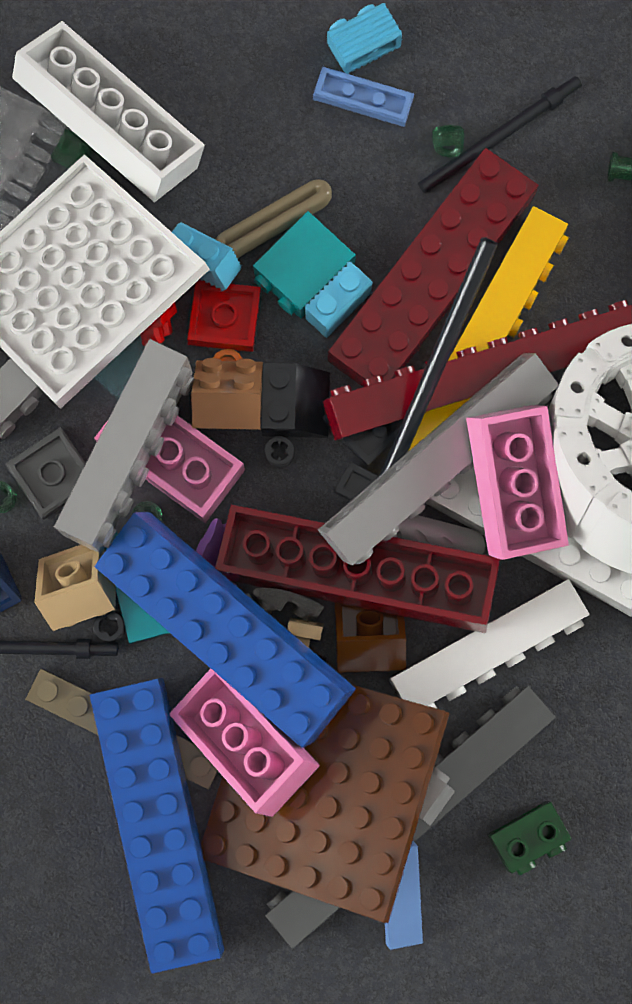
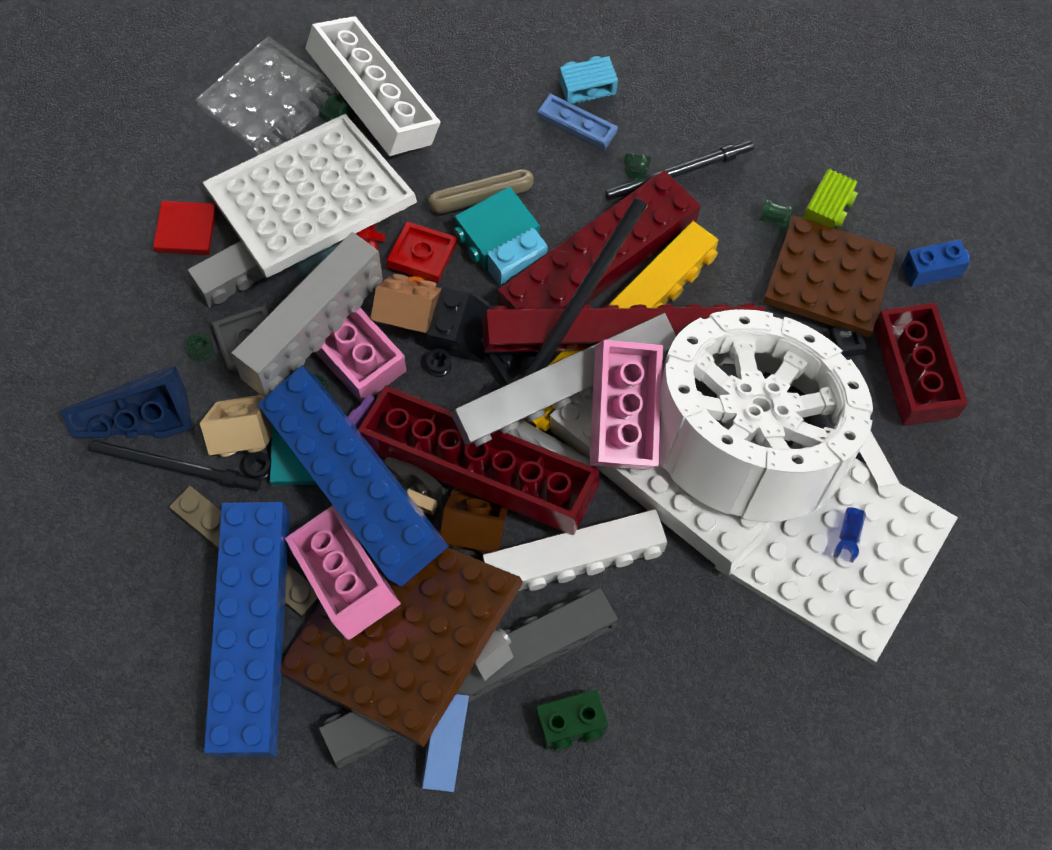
camera: 10 degrees right, 15 degrees down
(217, 256) = (428, 209): medium azure brick -> none

